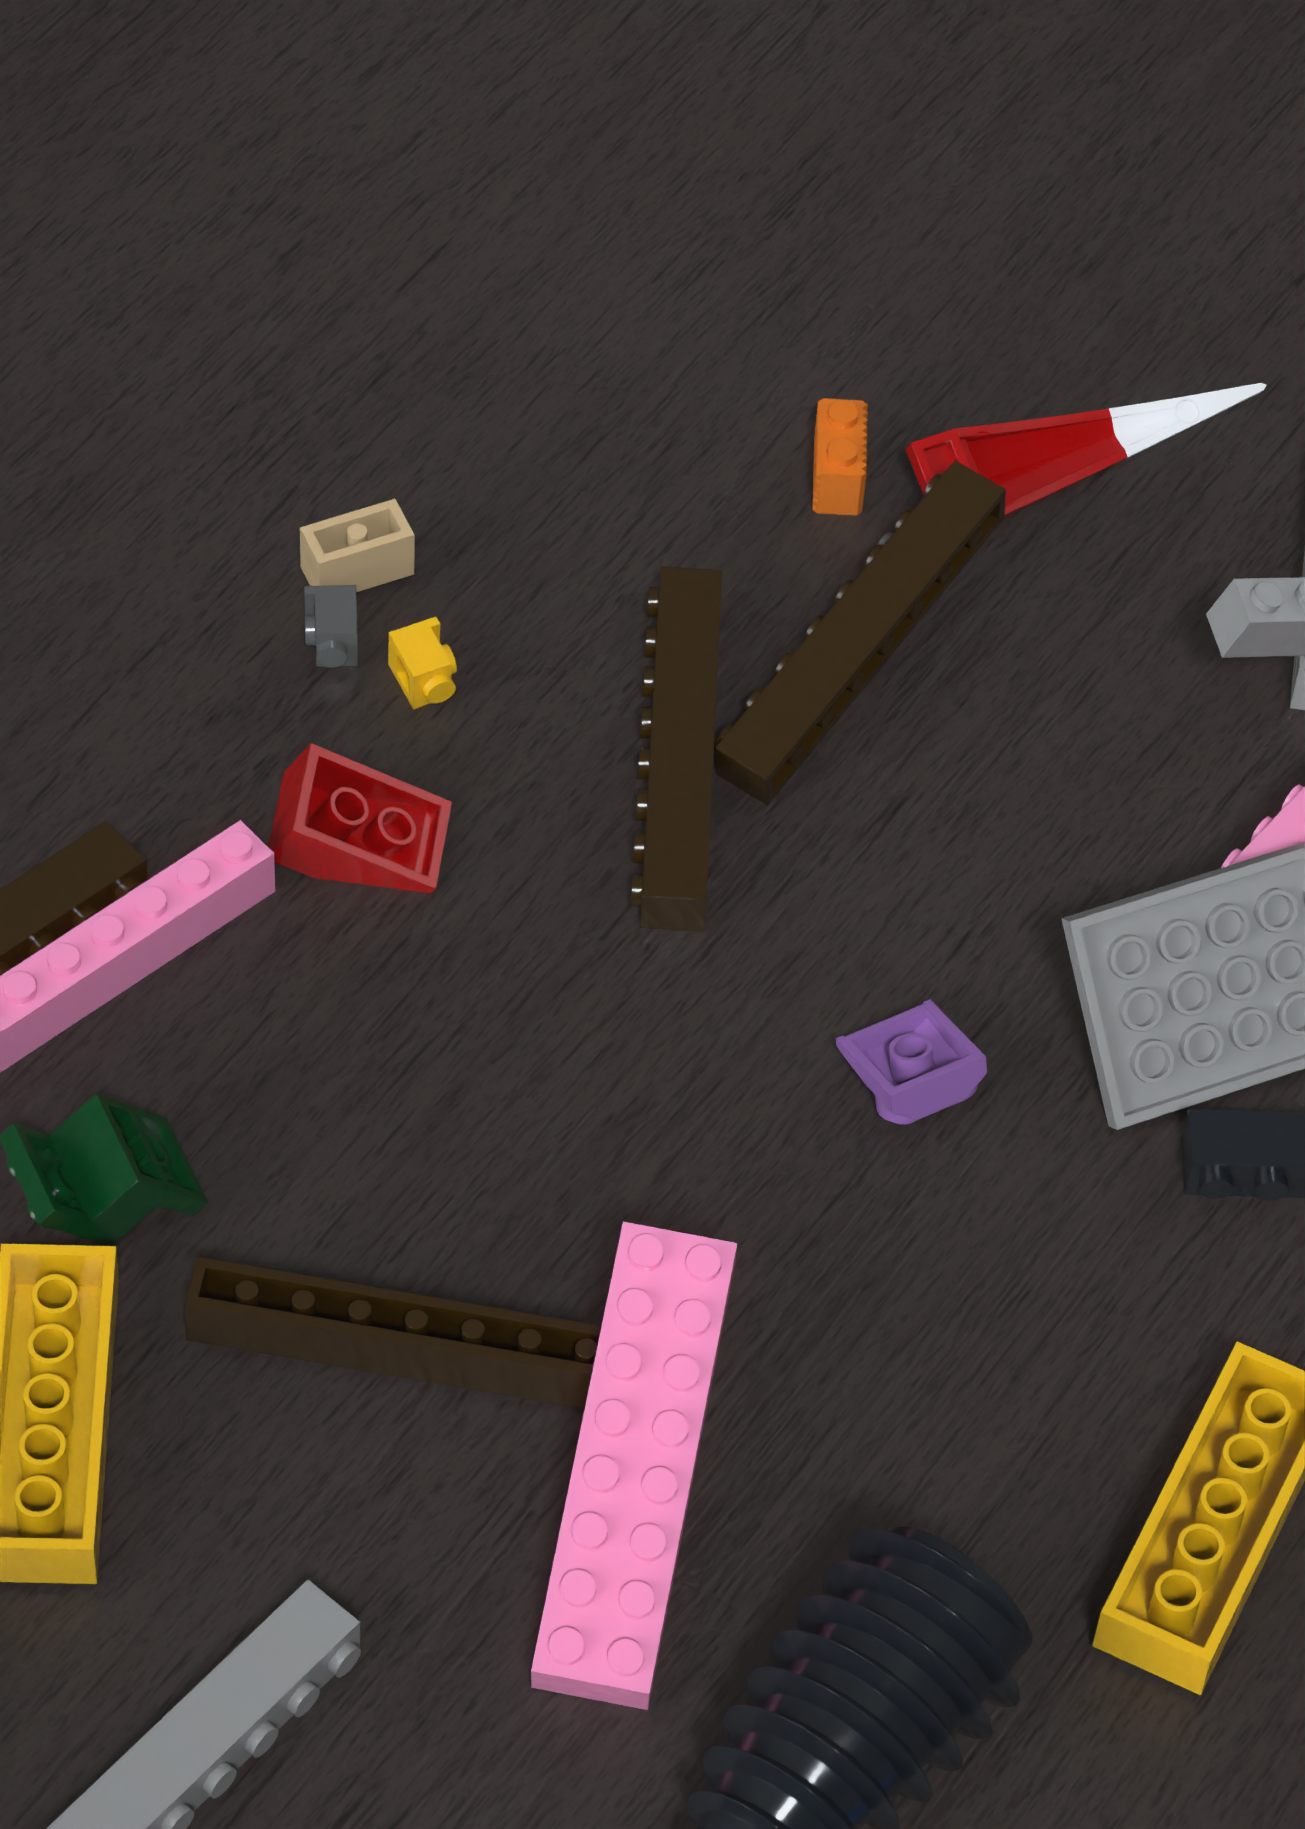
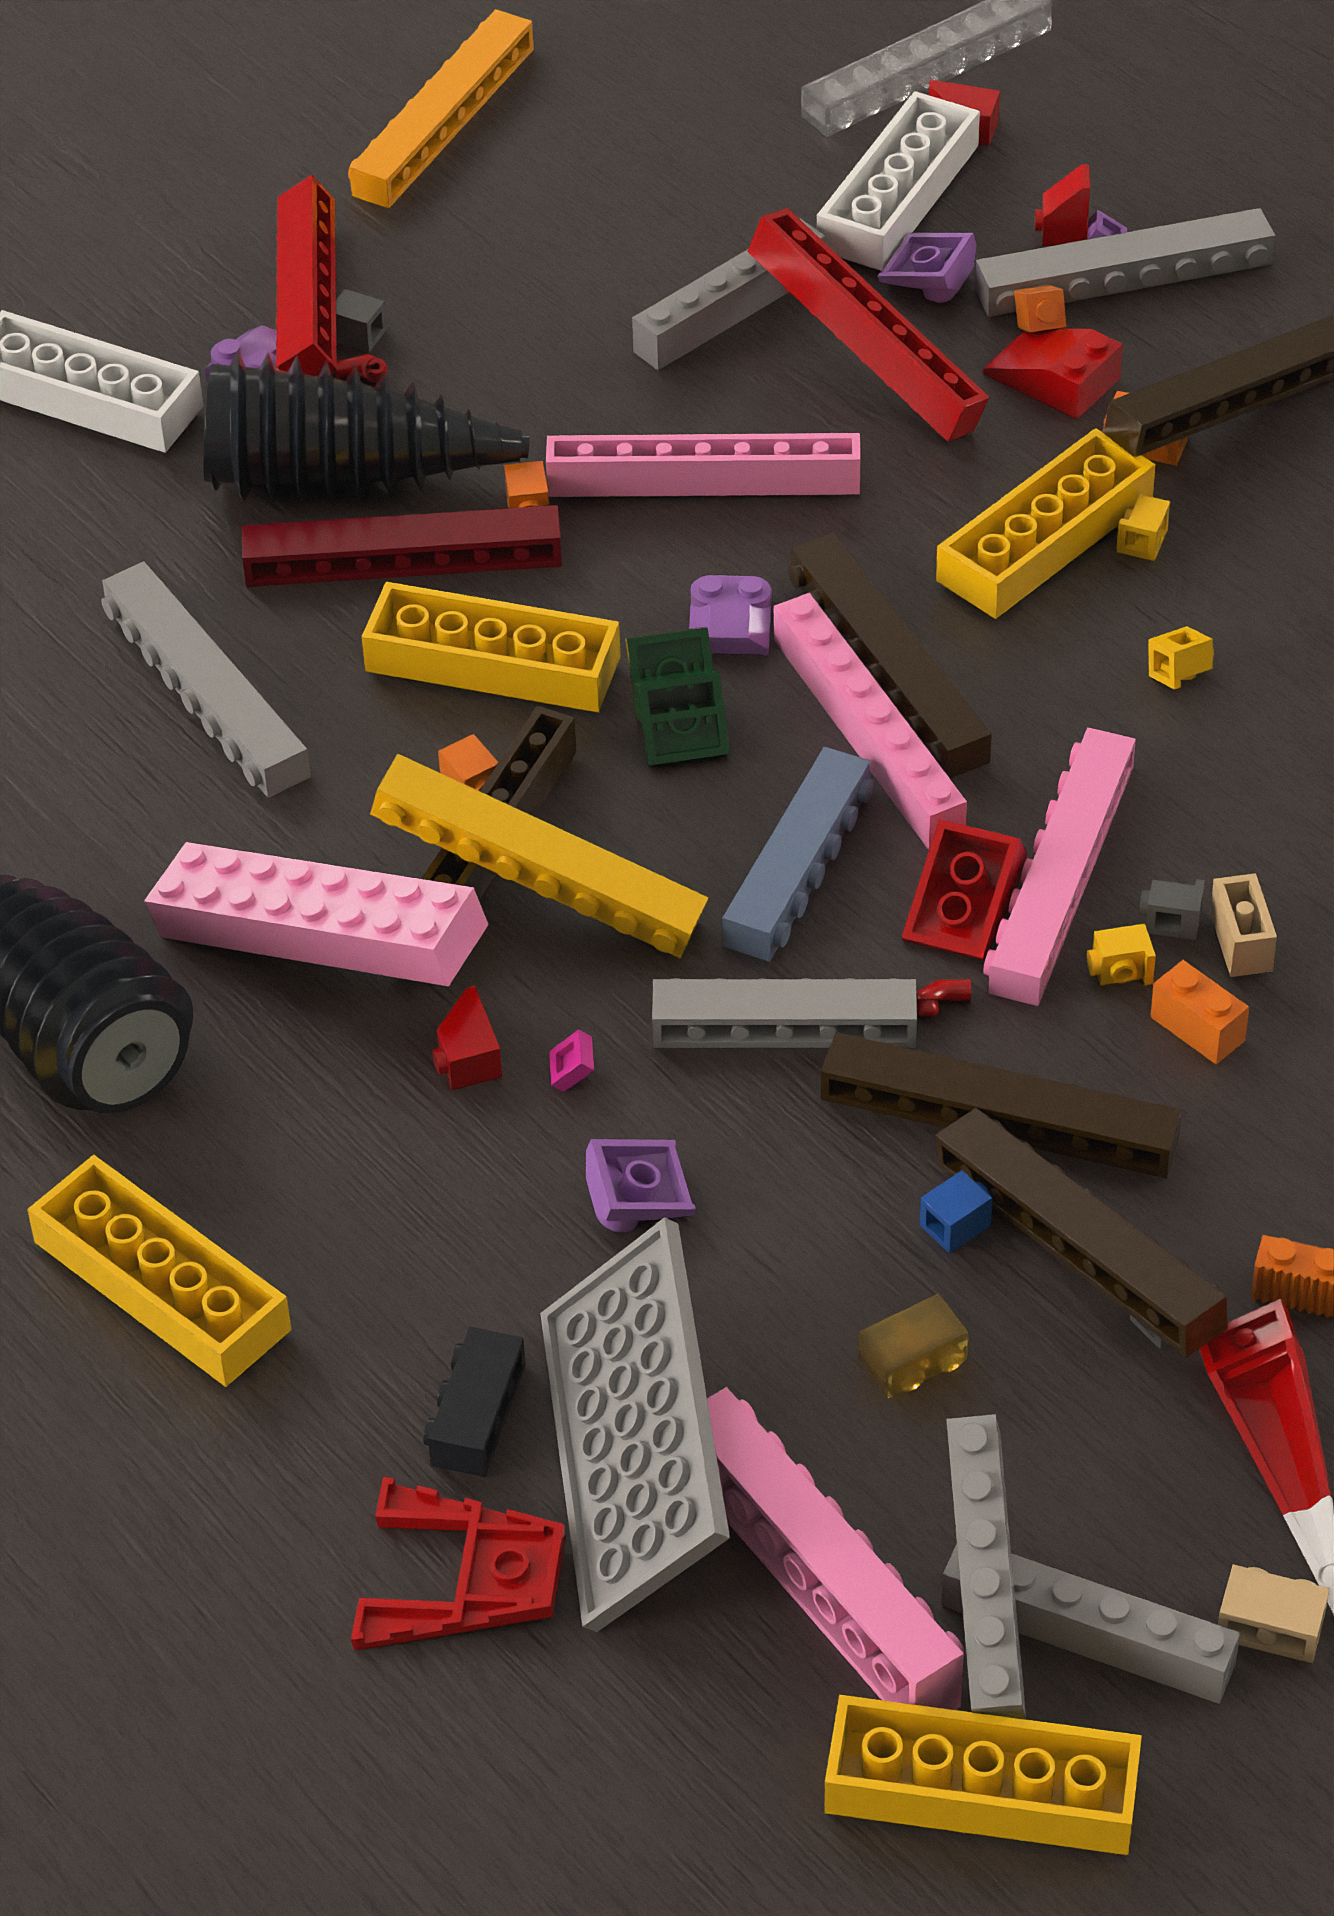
camera: 110 degrees right, 5 degrees down
(267, 733) = (1060, 867): none -> bright pink brick
(279, 1393) = (467, 762): none -> orange brick
(336, 1004) = (797, 854): none -> sand blue brick
(466, 1241) = (538, 855): none -> yellow brick
(493, 581) = (1199, 1012): none -> orange brick
(520, 835) = (939, 991): none -> red arm
(604, 973) = (781, 1012): none -> light grey brick
(743, 1171) = (571, 1060): none -> dark pink plate
(765, 1285) = (467, 1044): none -> red slope
(848, 761) = (956, 1211): none -> blue brick
(1045, 771) = (913, 1346): none -> clear yellow brick
(1260, 440) = (1274, 1612): none -> tan brick

